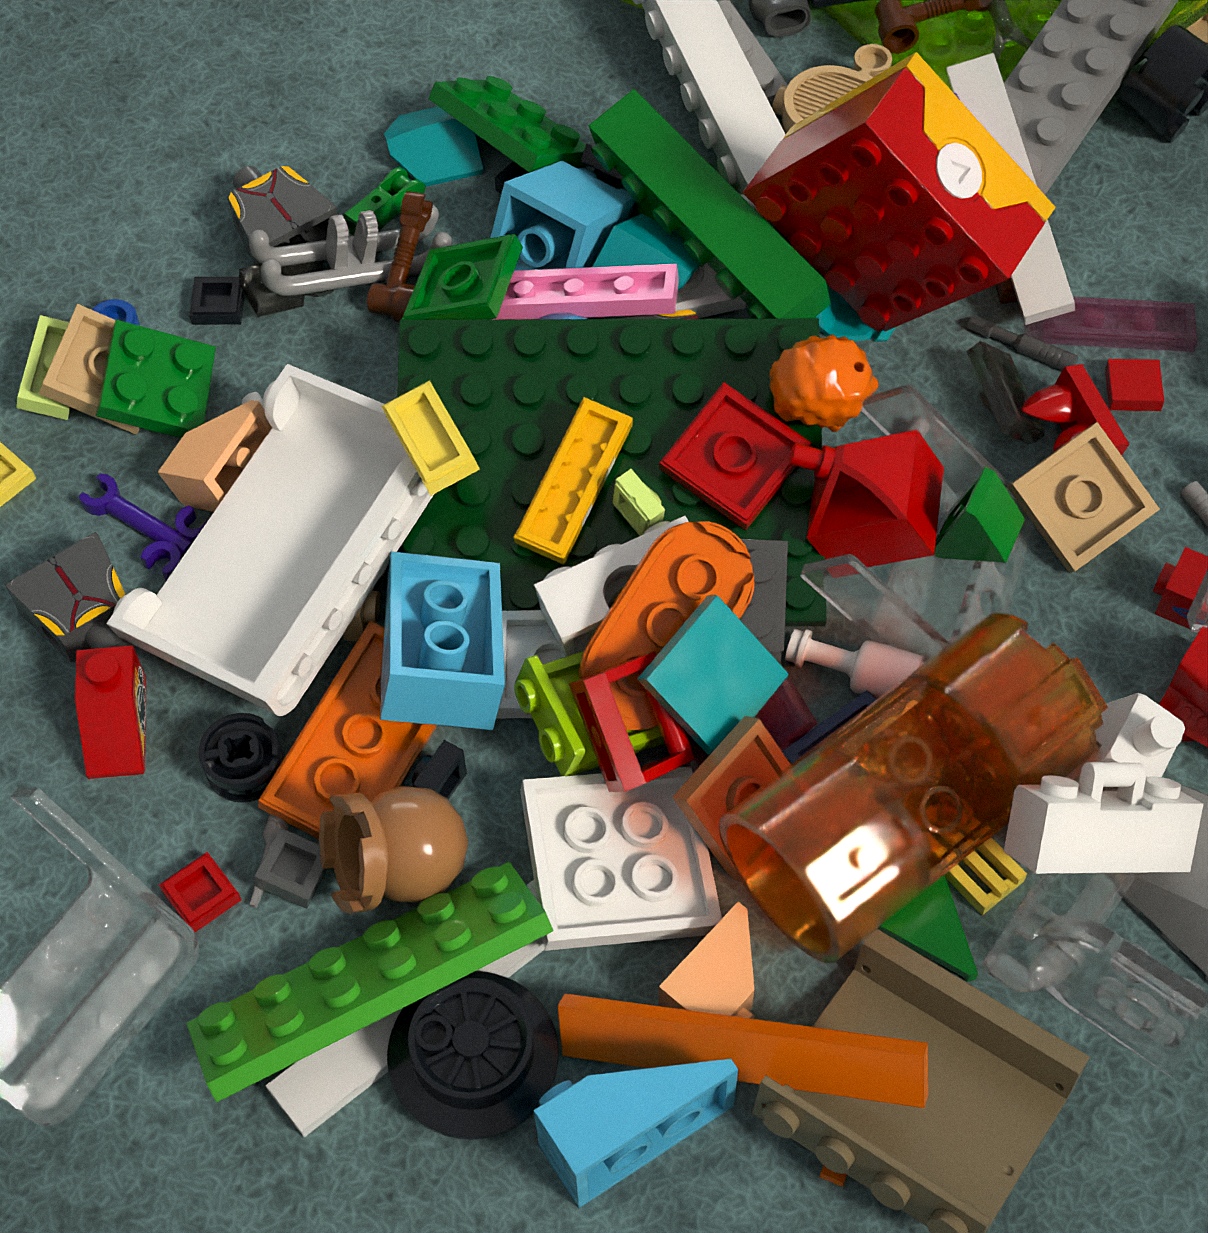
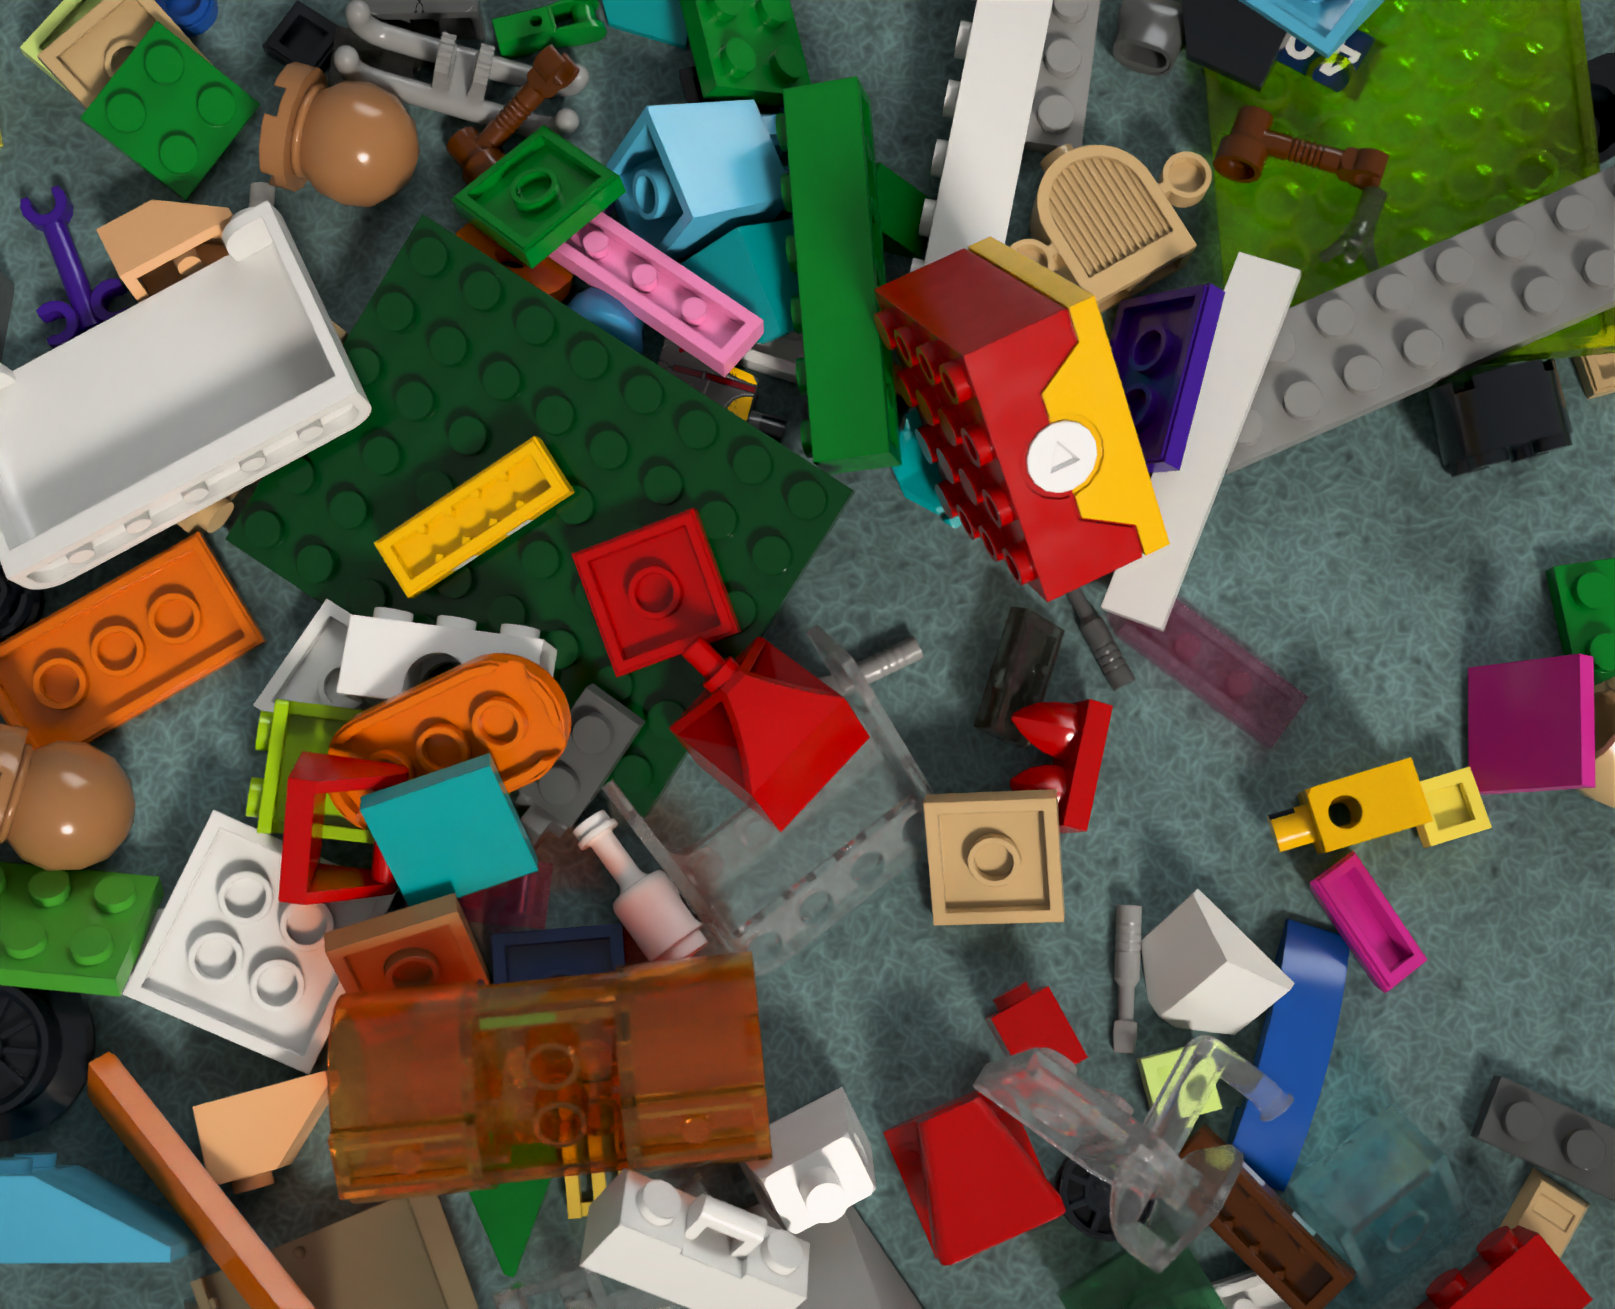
camera: 25 degrees right, 20 degrees up
(301, 323) = (342, 138): none -> medium nougat tile
(430, 438) = (330, 395): light yellow tile -> none
(442, 642) = (237, 604): medium azure slope -> none
(442, 770) = (153, 744): black plate -> none
(637, 502) = (518, 588): yellowish green tile -> none
(822, 382) = (785, 580): orange animal -> none
(981, 523) = (854, 830): green slope -> none
(1134, 384) = (1168, 750): red tile -> none

